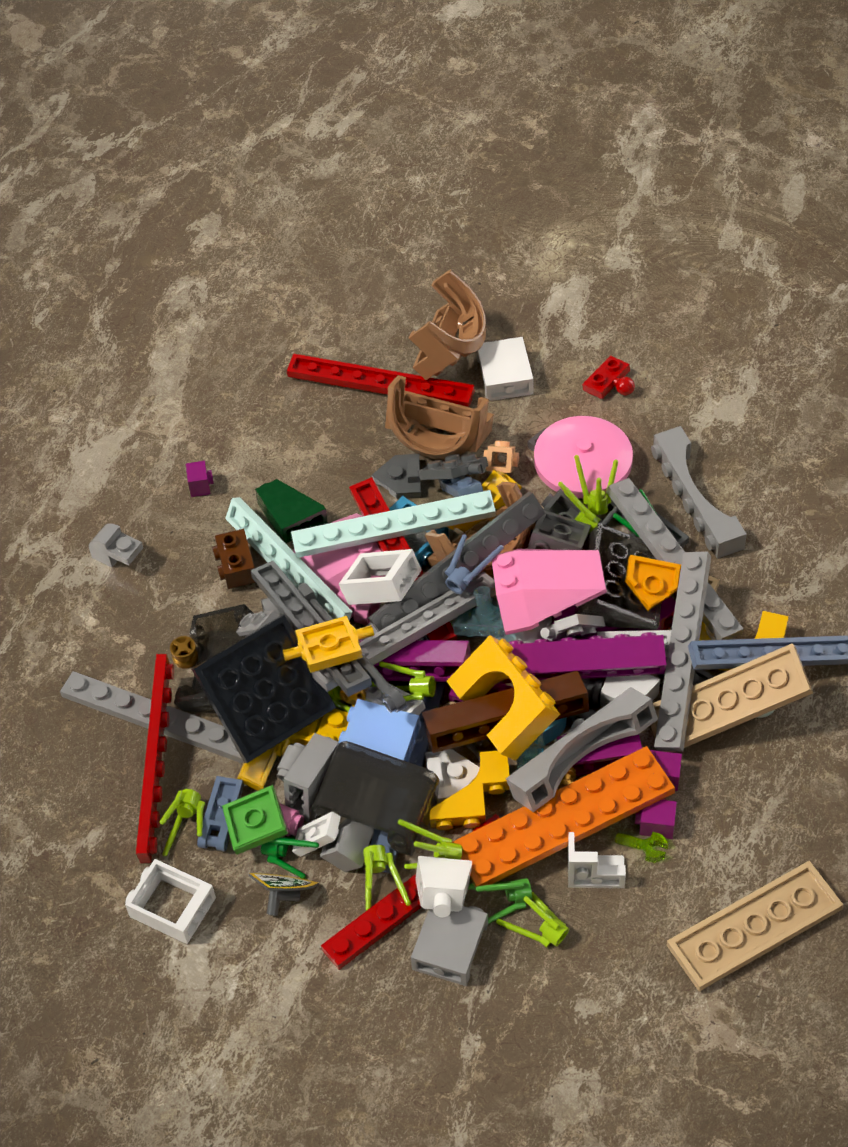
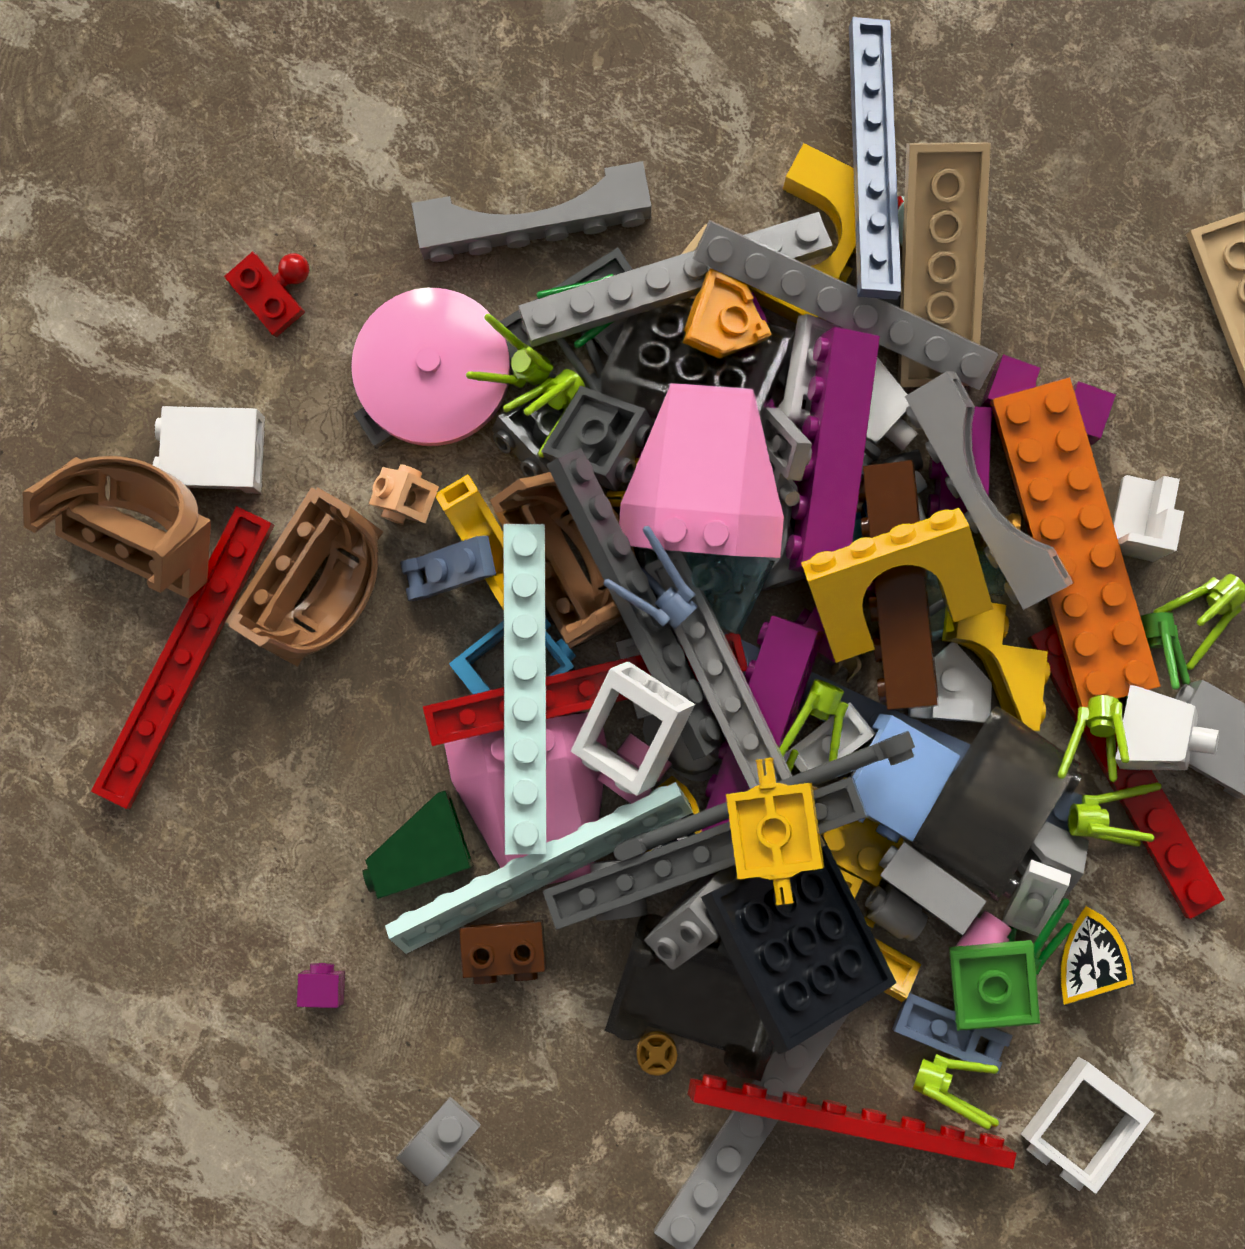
camera: 80 degrees left, 30 degrees up
(400, 476) = (387, 658): dark grey plate -> none
(454, 467) = (417, 572): dark grey plate -> none
(645, 845) = (1113, 443): clear neon green bar -> none

